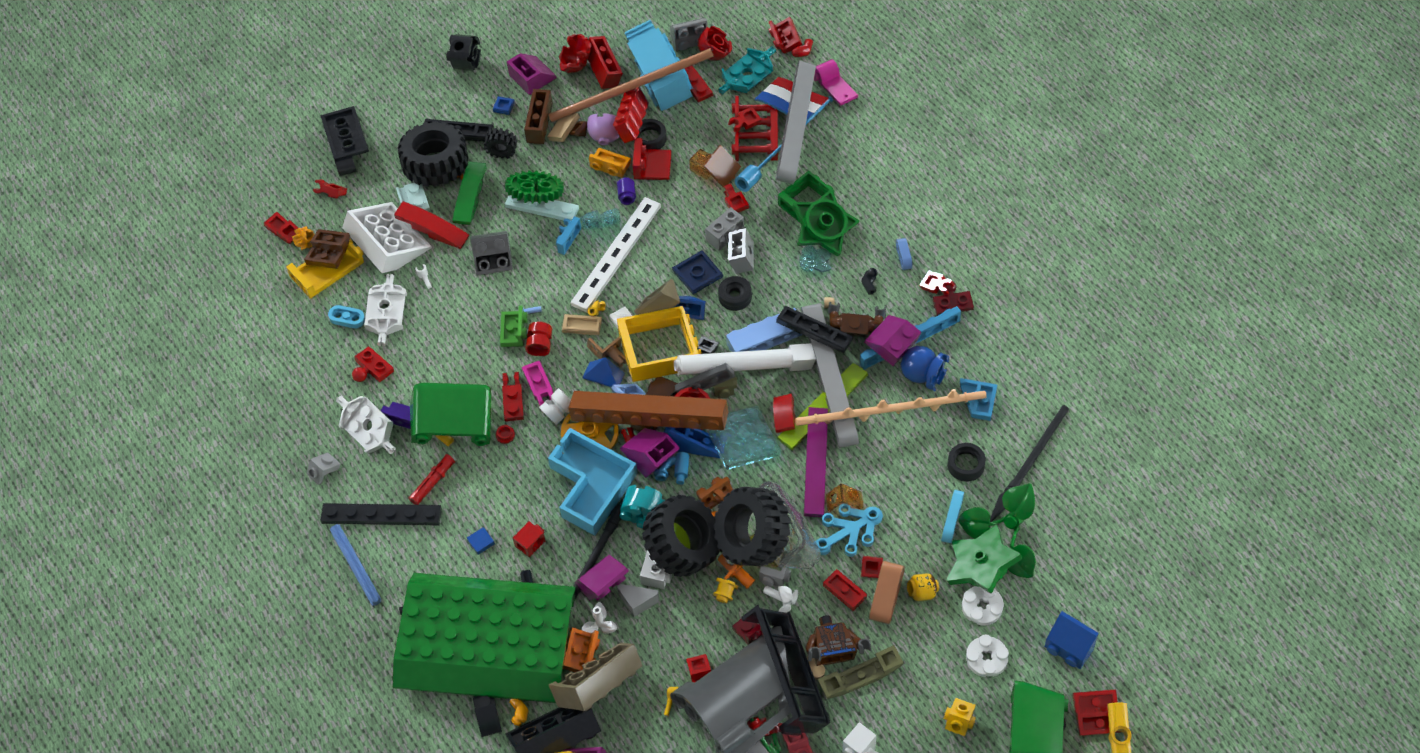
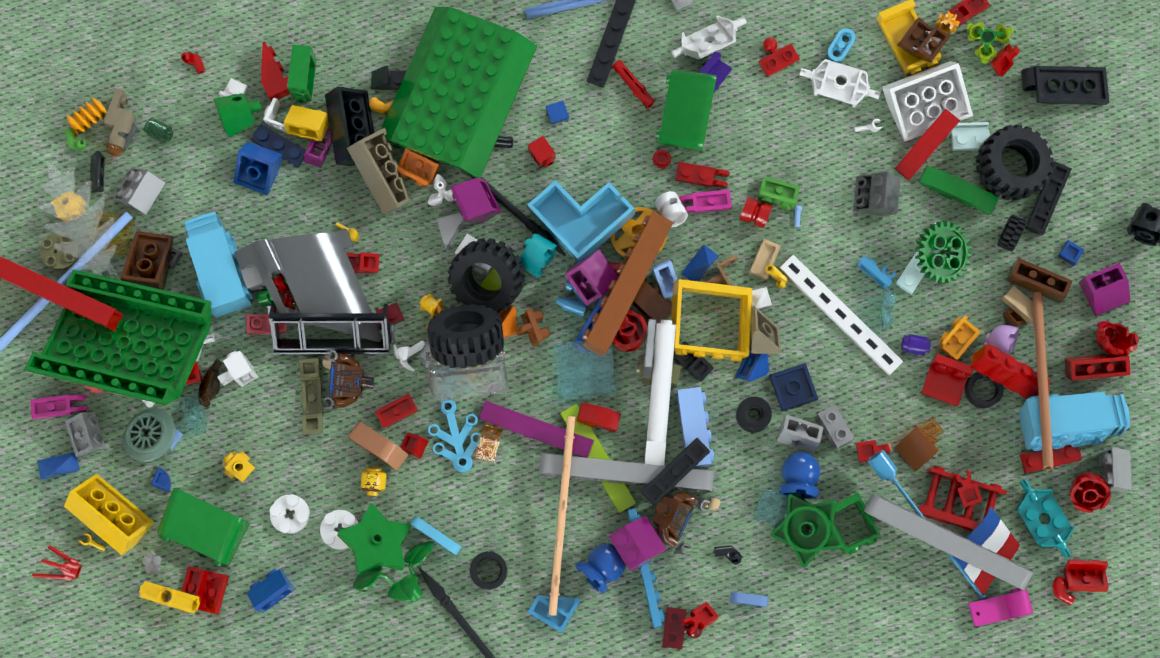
camera: 105 degrees right, 20 degrees up
(312, 196) = (987, 37): none -> lime plant
(777, 239) = (801, 474): none -> blue tile

